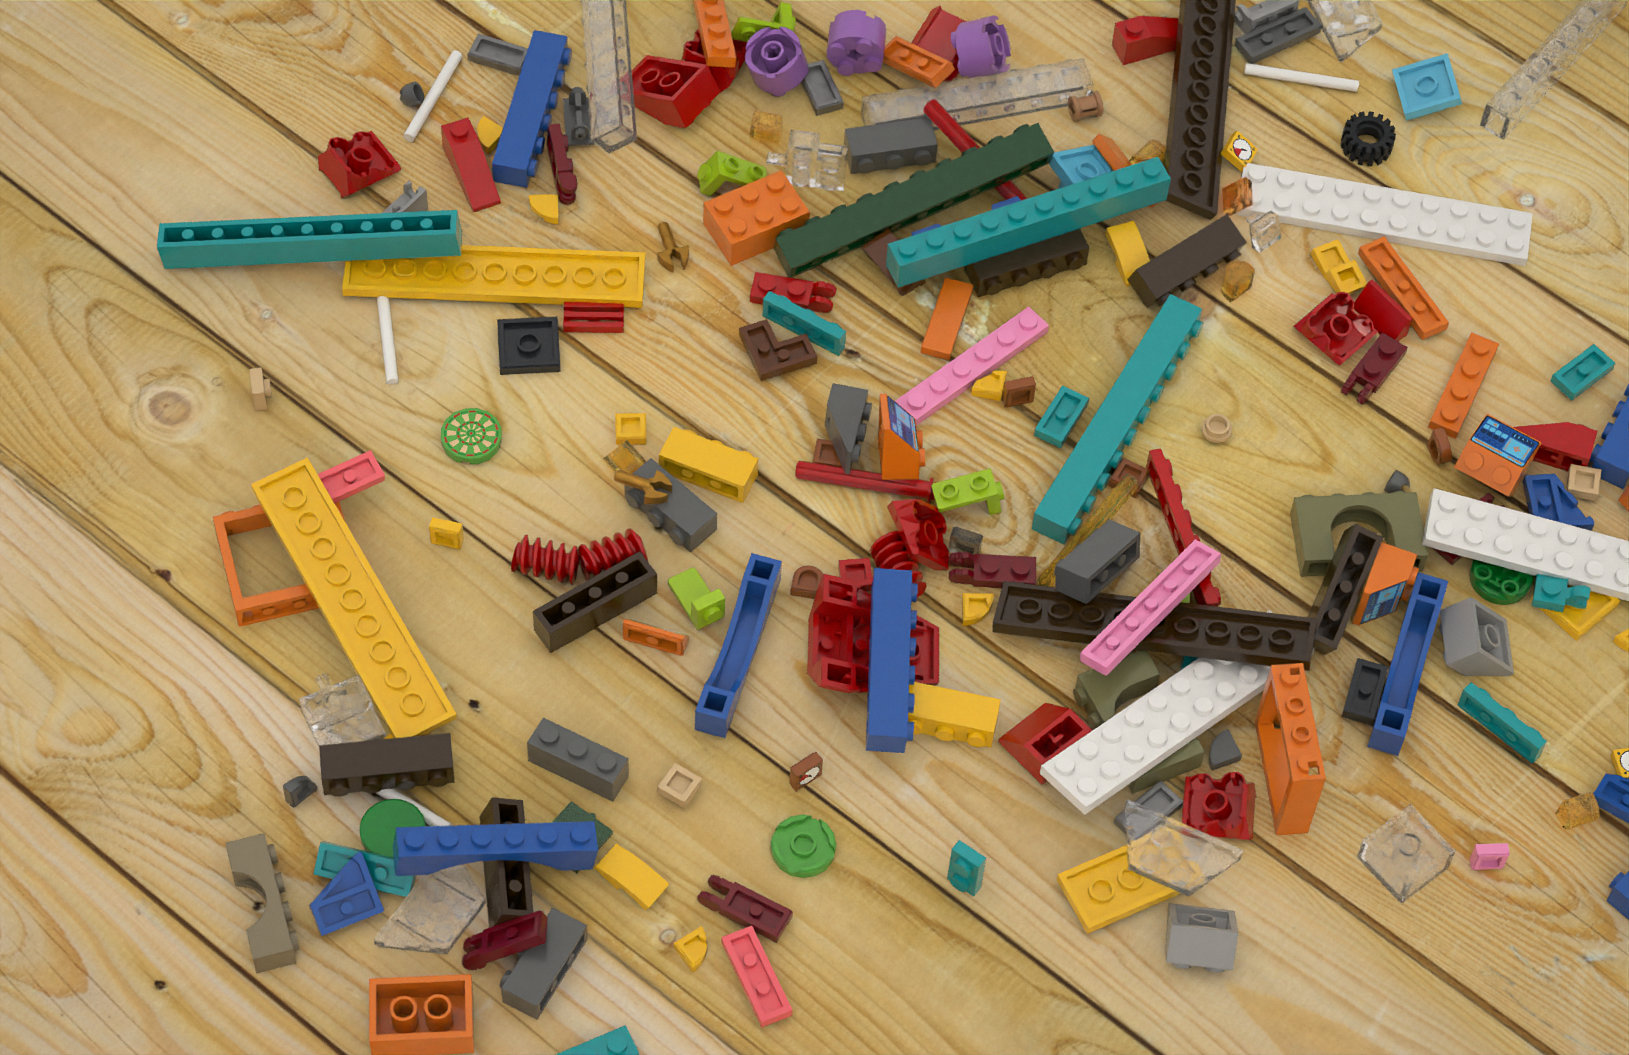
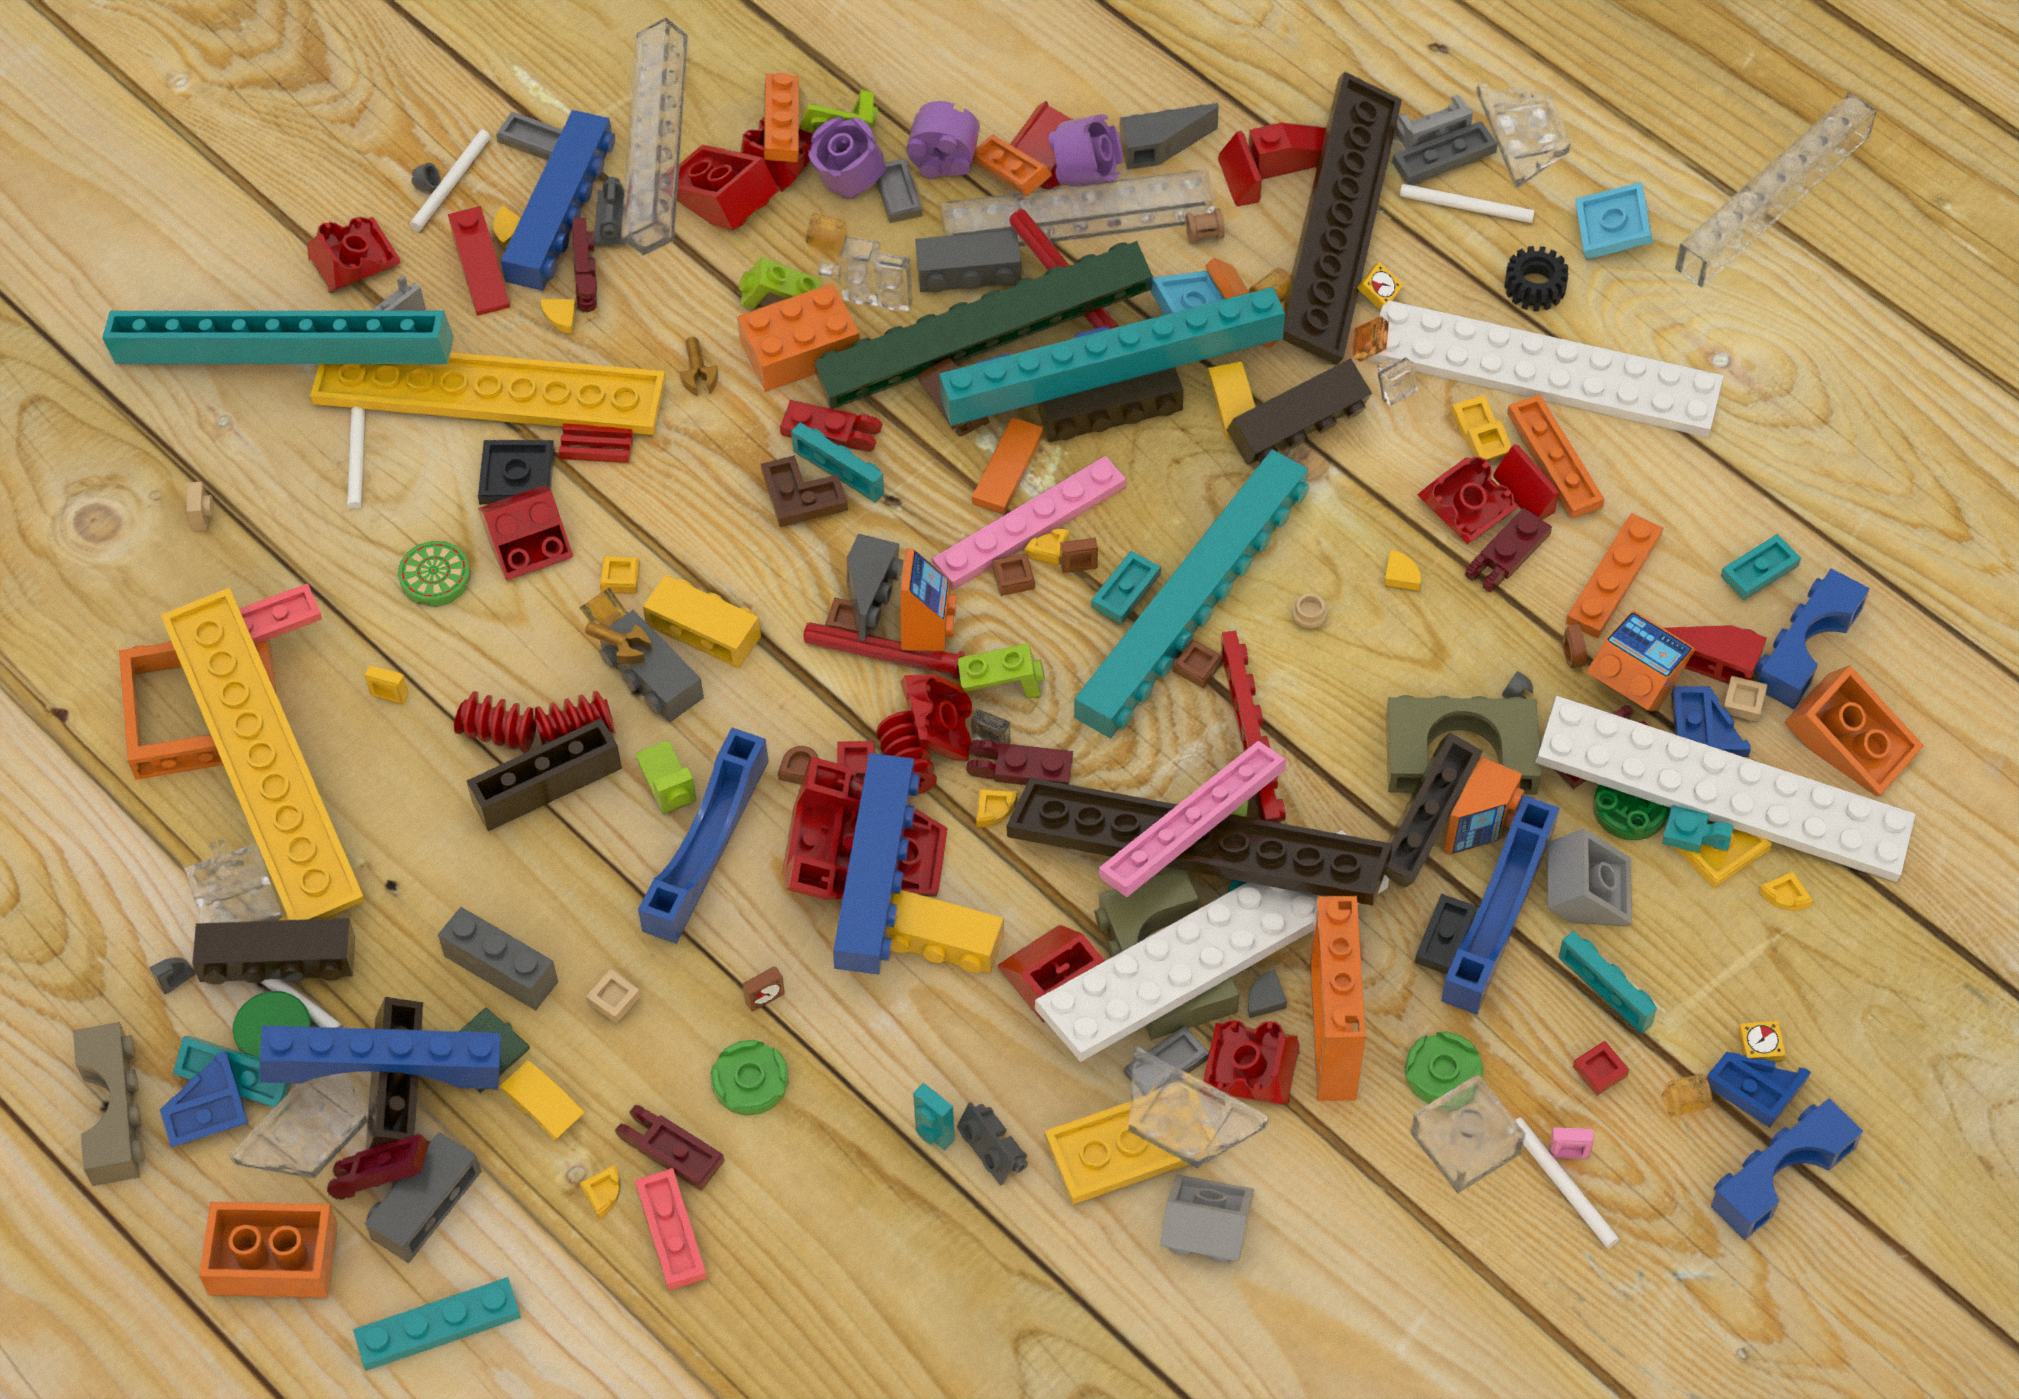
camera: 10 degrees right, 0 degrees up
(546, 396) = (526, 532): none -> red slope
(654, 637) = (611, 819): orange slope -> none
(964, 411) = (1013, 574): none -> dark orange tile
(1006, 881) = (981, 1130): none -> dark grey hinge
(1040, 29) = (1161, 135): none -> dark grey slope
(1097, 561) = (1141, 760): dark grey brick -> none
(1100, 516) = (1138, 725): clear yellow axle -> none
(1109, 57) = (1240, 171): none -> red slope
(1237, 279) = (1356, 436): clear yellow brick -> none
(1288, 392) = (1402, 572): none -> yellow tile
(1374, 800) = (1440, 1064): none -> bright green tile
(1492, 895) = (1568, 1187): none -> white bar
(1505, 793) = (1600, 1068): none -> red plate

